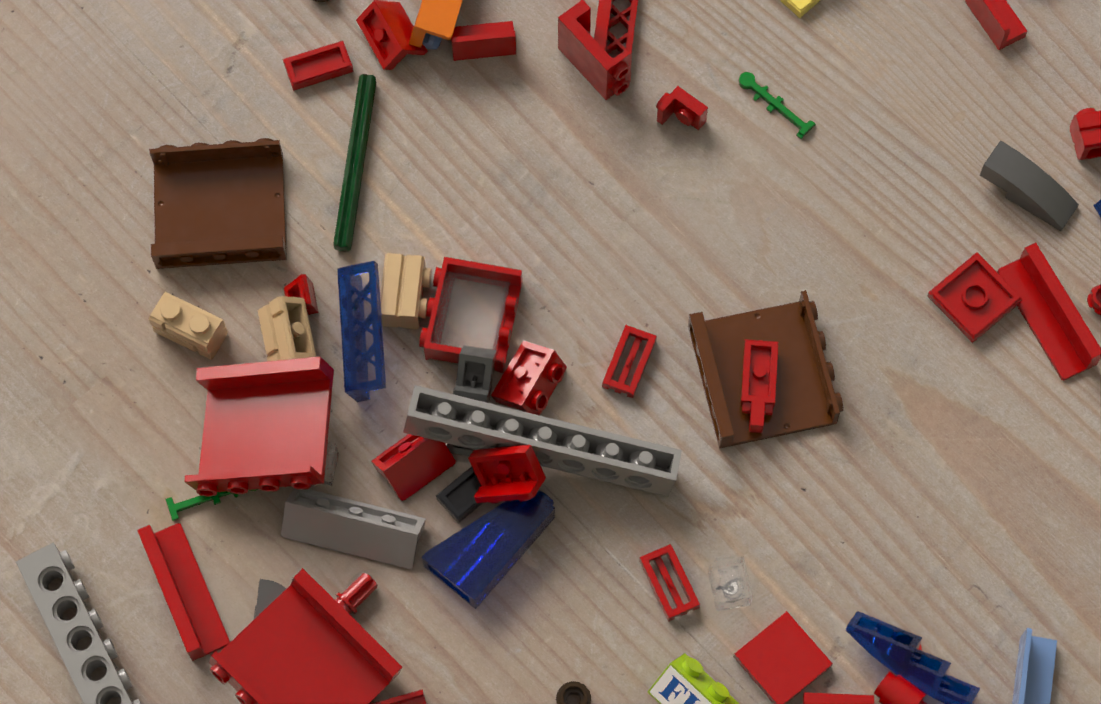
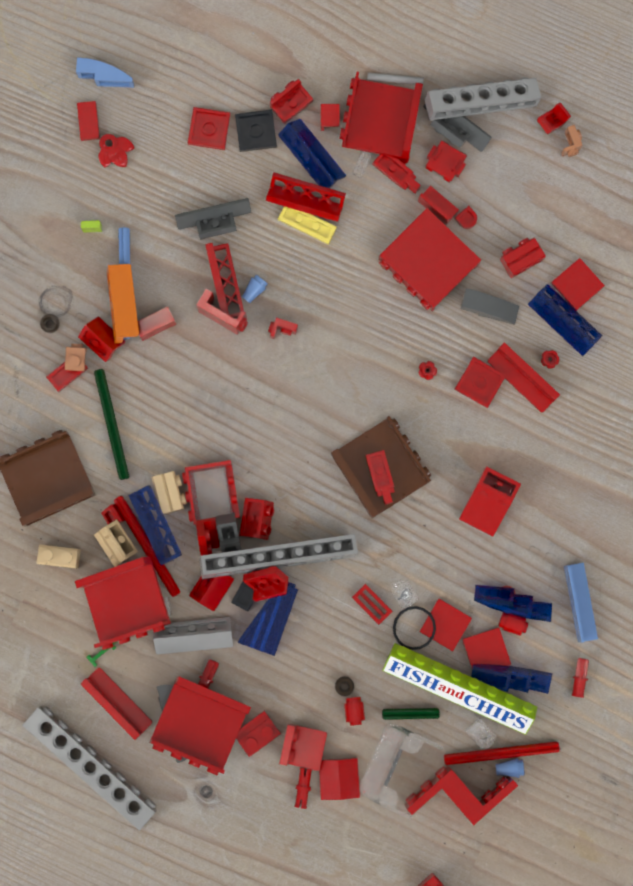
camera: 25 degrees left, 15 degrees up
(334, 357) = (144, 542): none -> red axle
(339, 44) = (75, 357): none -> nougat bracket
(439, 365) = (207, 535): none -> red bracket
(620, 386) = (306, 470): red tile -> none
(659, 39) = (254, 288): none -> medium blue cone
(732, 612) = (410, 608): none -> black piece
(747, 81) = (312, 295): green piece -> none
(887, 255) = (428, 365): none -> red plate
(928, 482) = (489, 501): none -> red slope
(953, 84) = (428, 259): none -> red panel
(1035, 49) = (466, 218): none -> red tile

